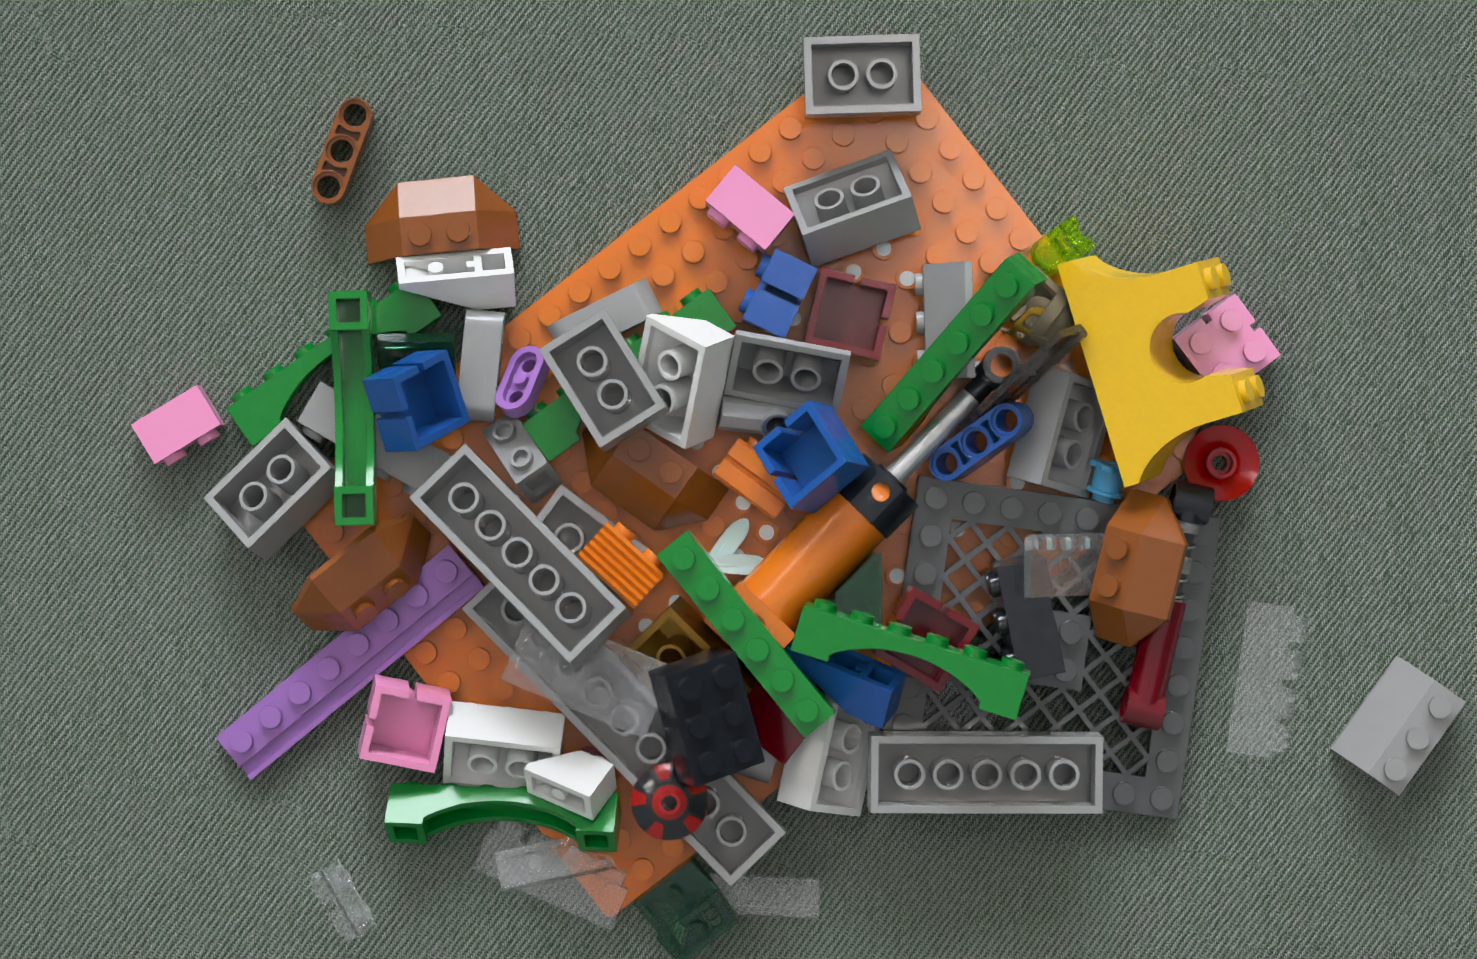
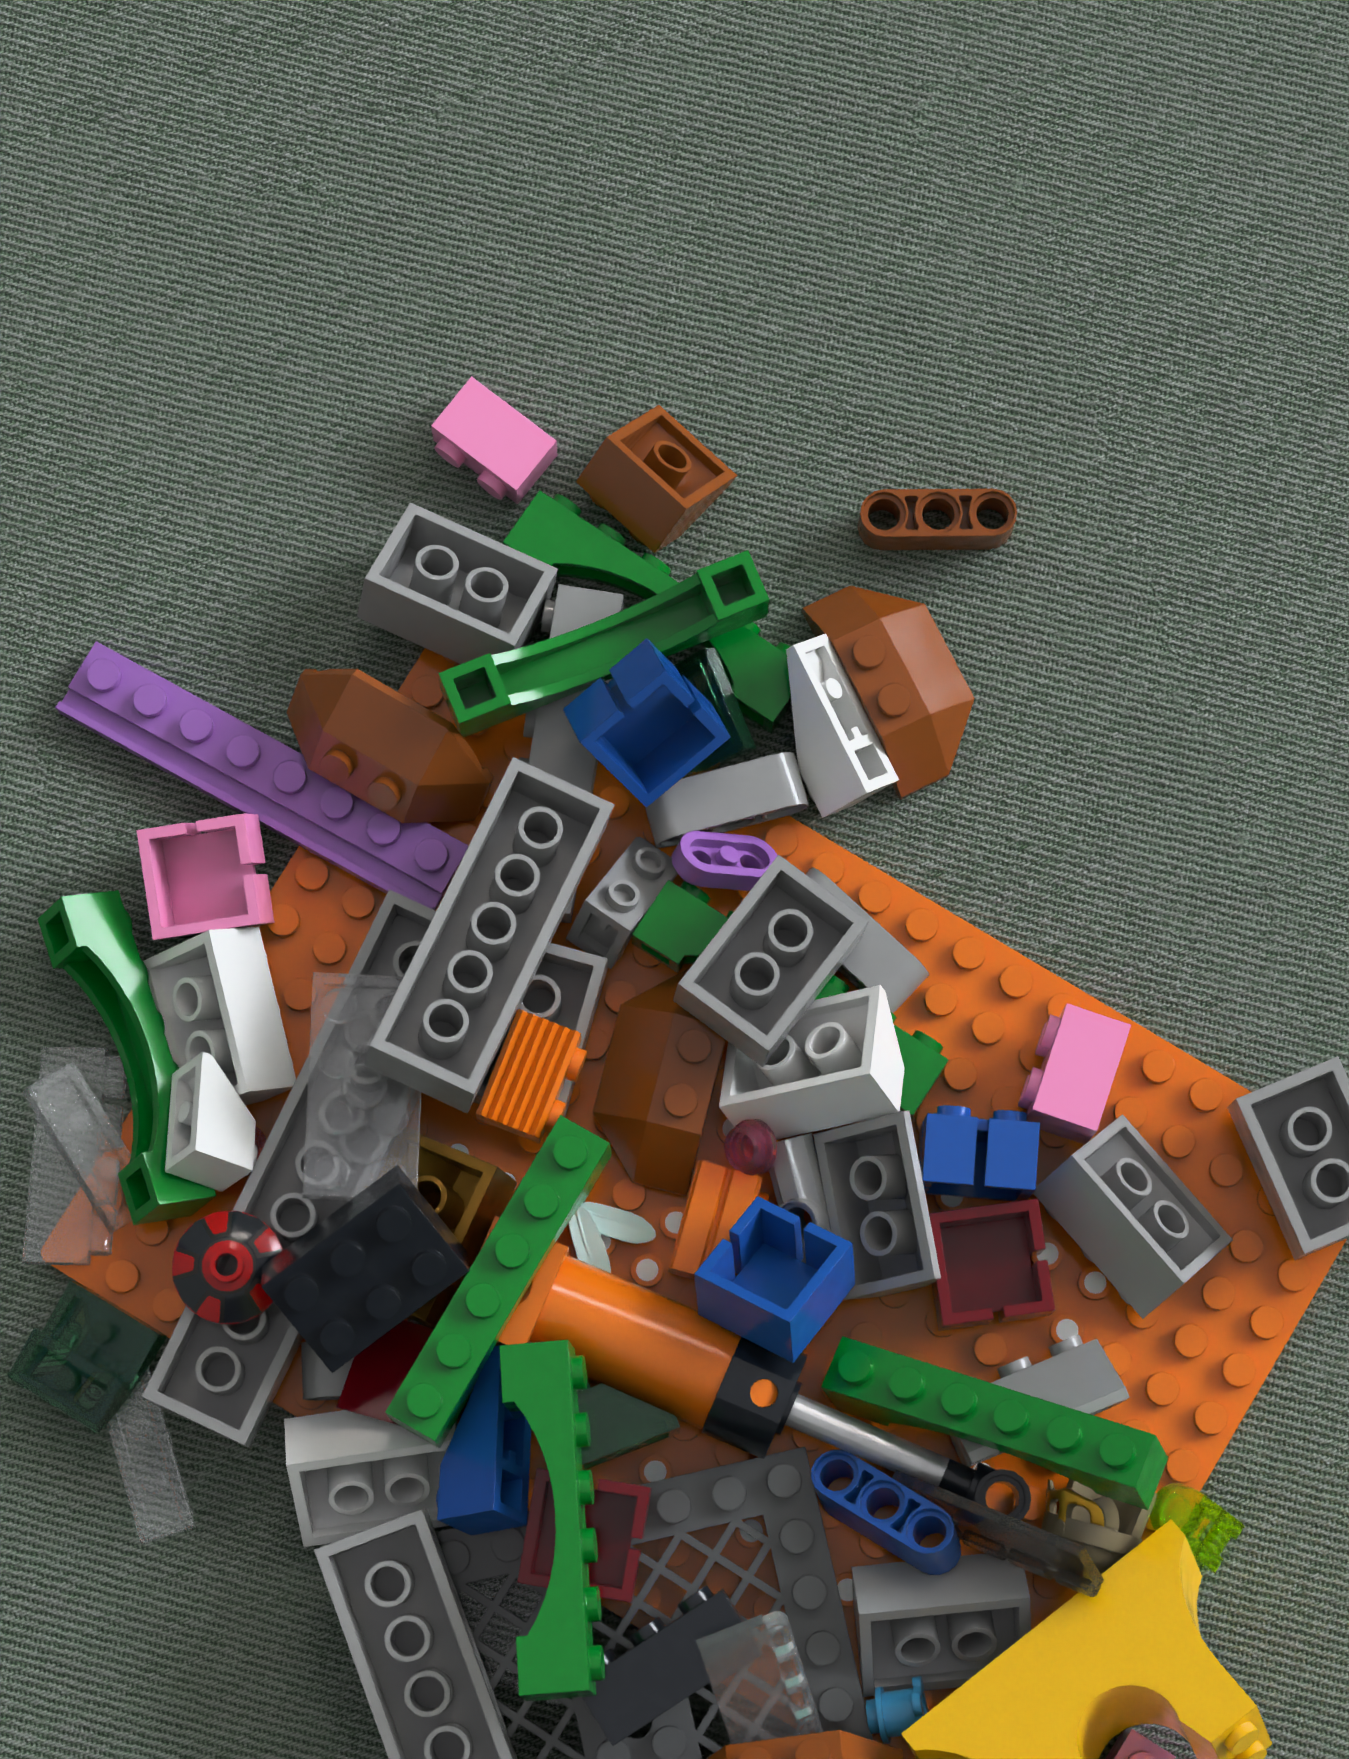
camera: 65 degrees right, 10 degrees down
(244, 327) = (655, 478): none -> dark orange slope
(718, 438) = (751, 1147): none -> clear pink plate

